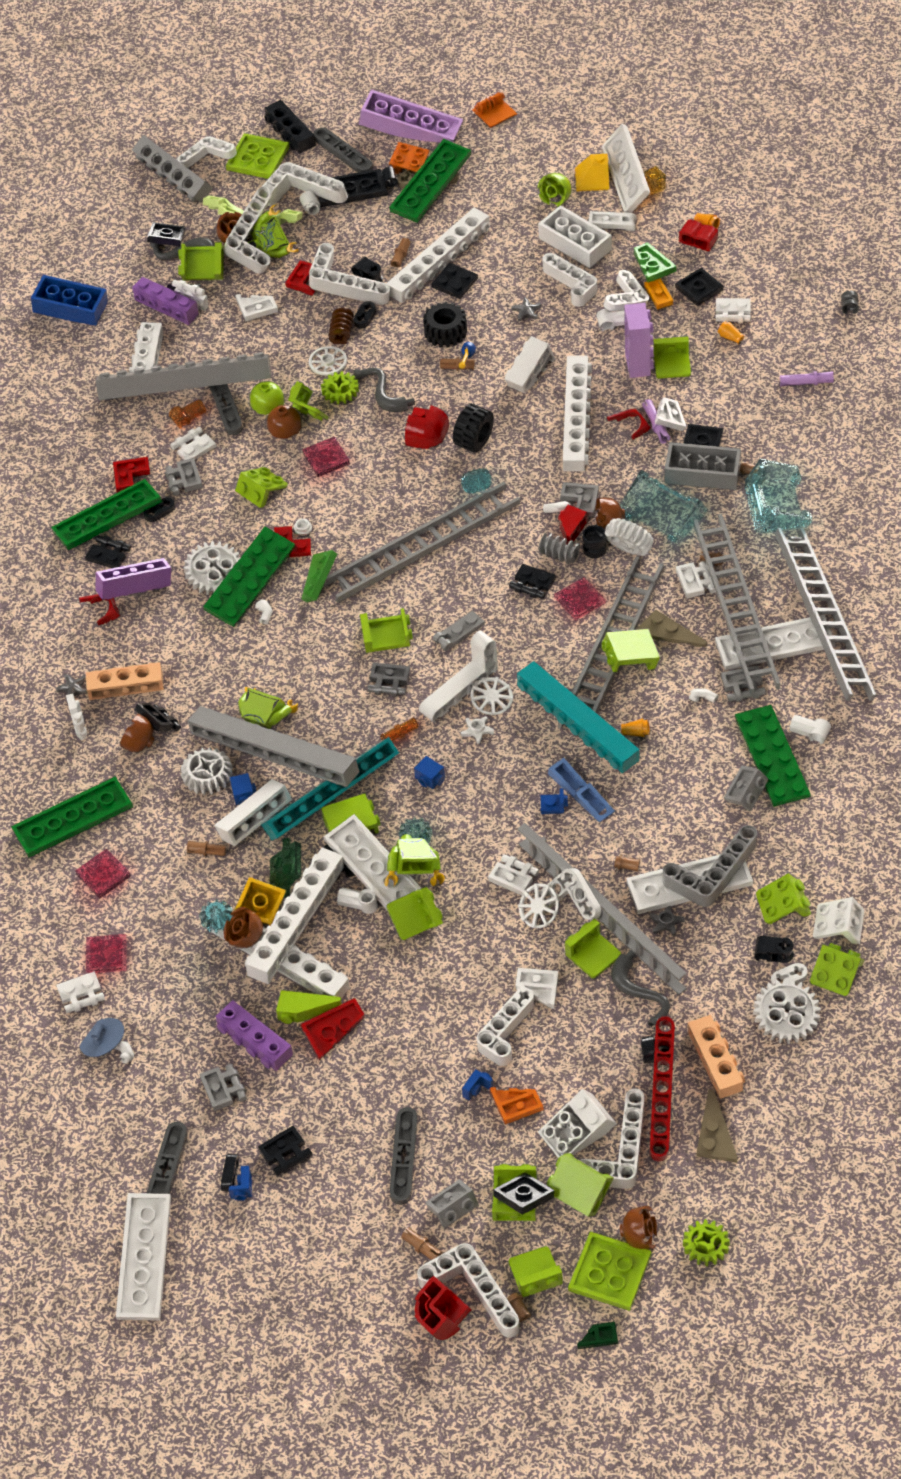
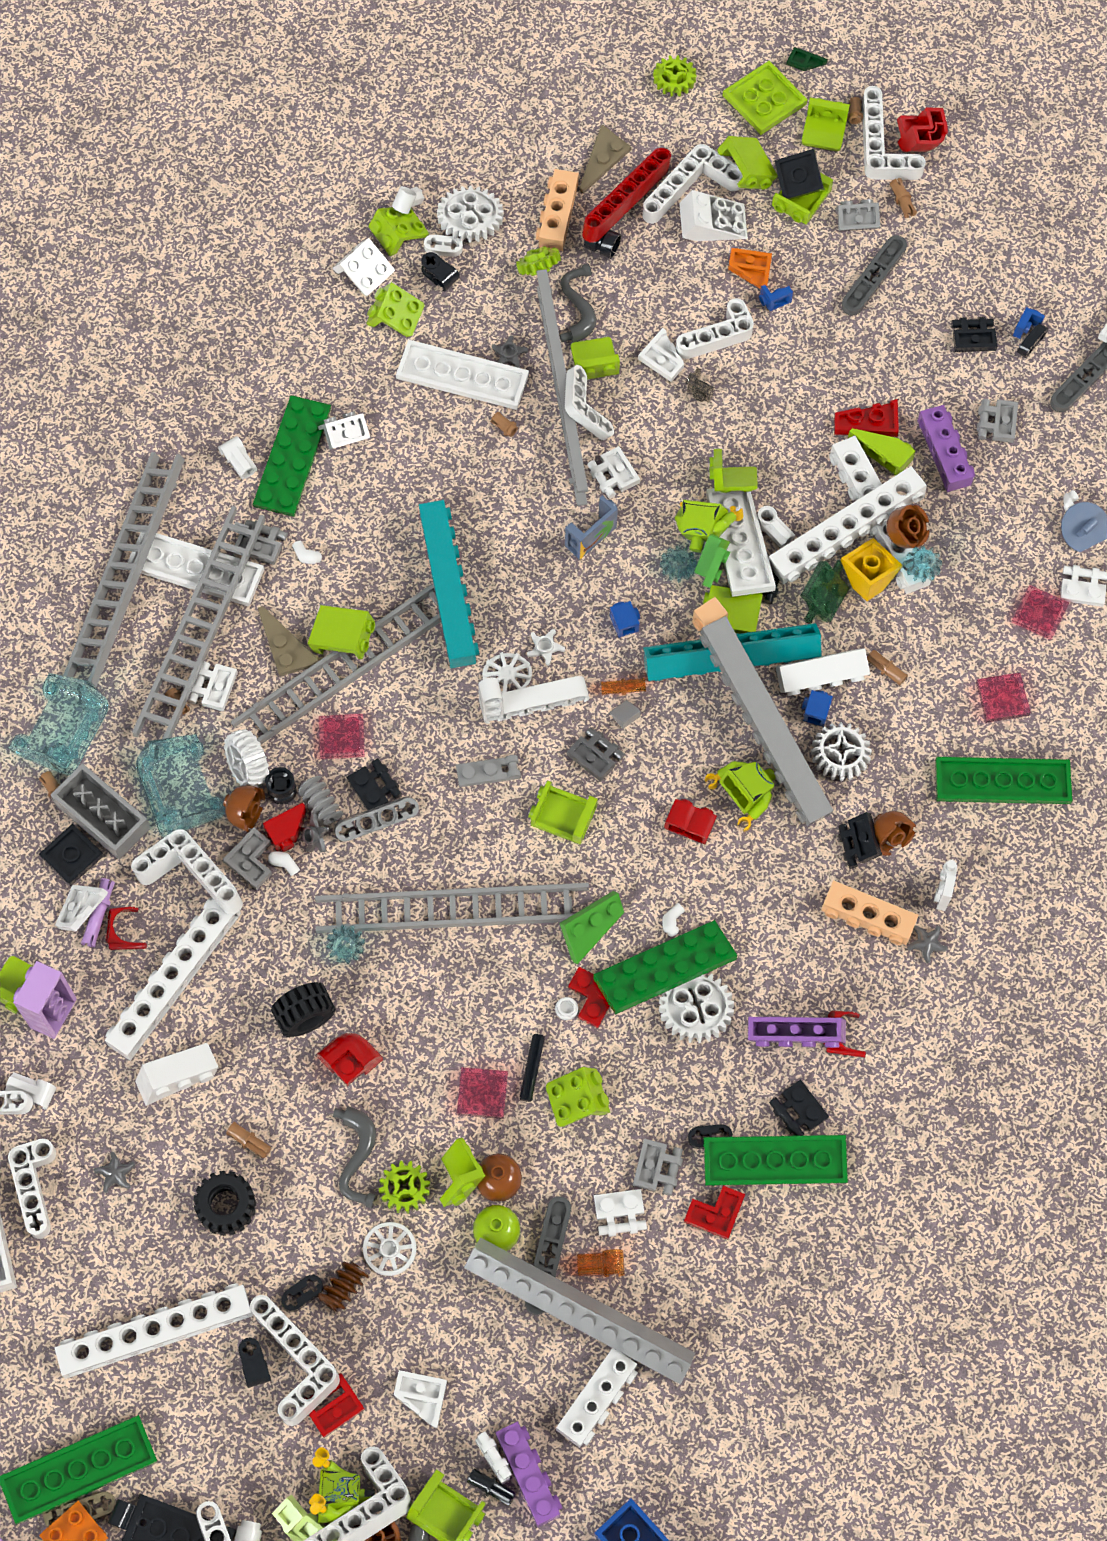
camera: 155 degrees left, 15 degrees up
(290, 671) = (690, 821): none -> red brick
(303, 486) = (532, 1067): none -> black axle
(360, 791) = (708, 613): none -> light nougat brick
(378, 828) = (712, 556): none -> bright green bracket
(385, 715) = (625, 713): none -> light grey slope
(400, 252) = (194, 1370): medium nougat axle -> none
(454, 280) = (162, 1280): black plate -> none
(467, 353) = (225, 1150): blue hinge -> none
(490, 972) = (700, 390): none -> clear smoke bracket
(500, 799) = (581, 543): none -> sand blue panel
(514, 561) = (375, 815): none -> light grey beam
(538, 905) = (614, 421): white wheel -> none
(547, 526) = (314, 835): none -> flat silver animal
(554, 803) = (527, 522): blue bracket -> none
(586, 796) = (493, 517): medium blue slope -> none
(604, 464) = (179, 848): none -> white beam
(636, 728) = (394, 552): light orange cone -> none
(638, 1225) = (722, 109): dark orange cylinder -> none
(696, 996) = (538, 259): none -> lime gear
(733, 856) = (436, 356): light grey beam -> none
(845, 987) = (407, 198): none -> white piece

